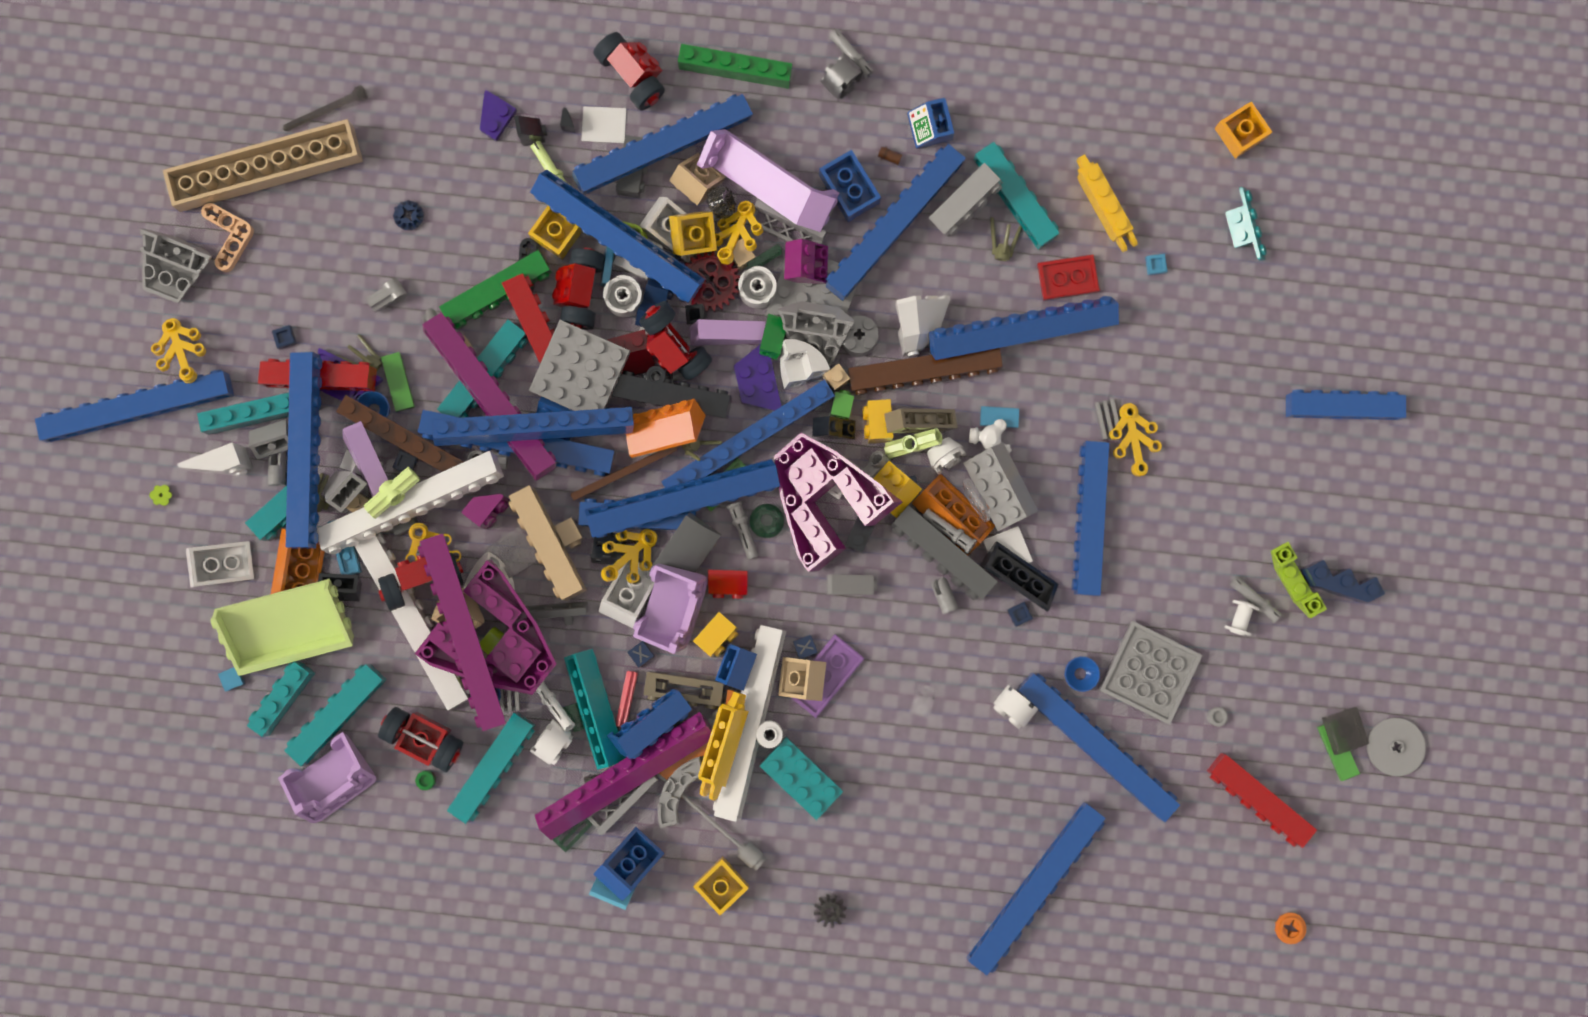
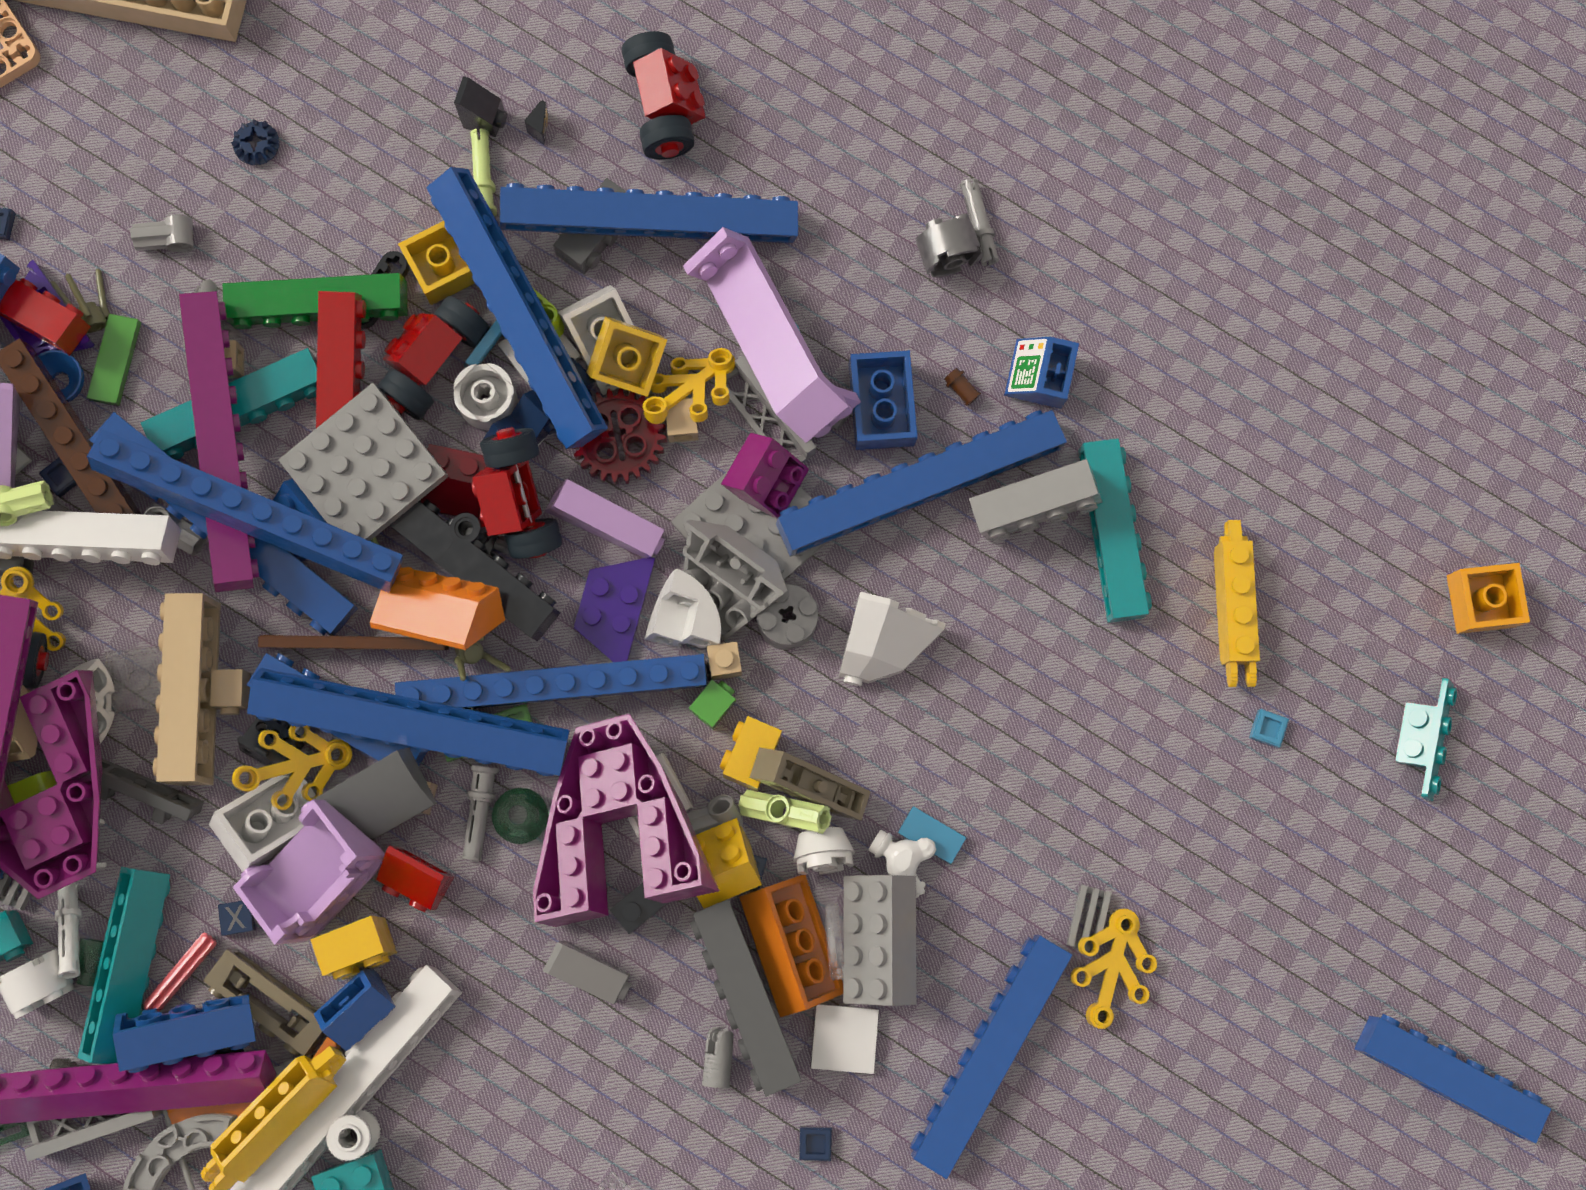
camera: 25 degrees right, 5 degrees down
(485, 509) = (125, 598): magenta slope -> none
(495, 115) = (445, 68): dark purple wing -> none
(603, 124) = (588, 151): white sticker -> none
(694, 180) = (670, 290): tan slope -> none
(695, 312) = (573, 469): black slope -> none
(721, 202) = (690, 334): clear smoke gear -> none
(735, 66) = (808, 160): green brick -> none
(748, 282) = (679, 460): white brick -> none
(765, 257) = (711, 441): clear green tile -> none
(772, 337) = (662, 557): green hinge -> none
(802, 679) = (444, 1077): tan slope -> none
(805, 646) = (477, 1029): dark blue tile -> none
(833, 428) = (684, 730): black slope -> none
(840, 664) = (483, 1088): medium lavender tile -> none
(922, 369) = (858, 711): reddish brown brick -> none
(956, 535) = (776, 980): light grey pin -> none
(1002, 252) = (1055, 600): olive plant -> none
(1020, 575) = (842, 1088): black slope -> none
(1023, 327) = (1030, 724): blue brick -> none
(1068, 277) = (1132, 683): red tile -> none

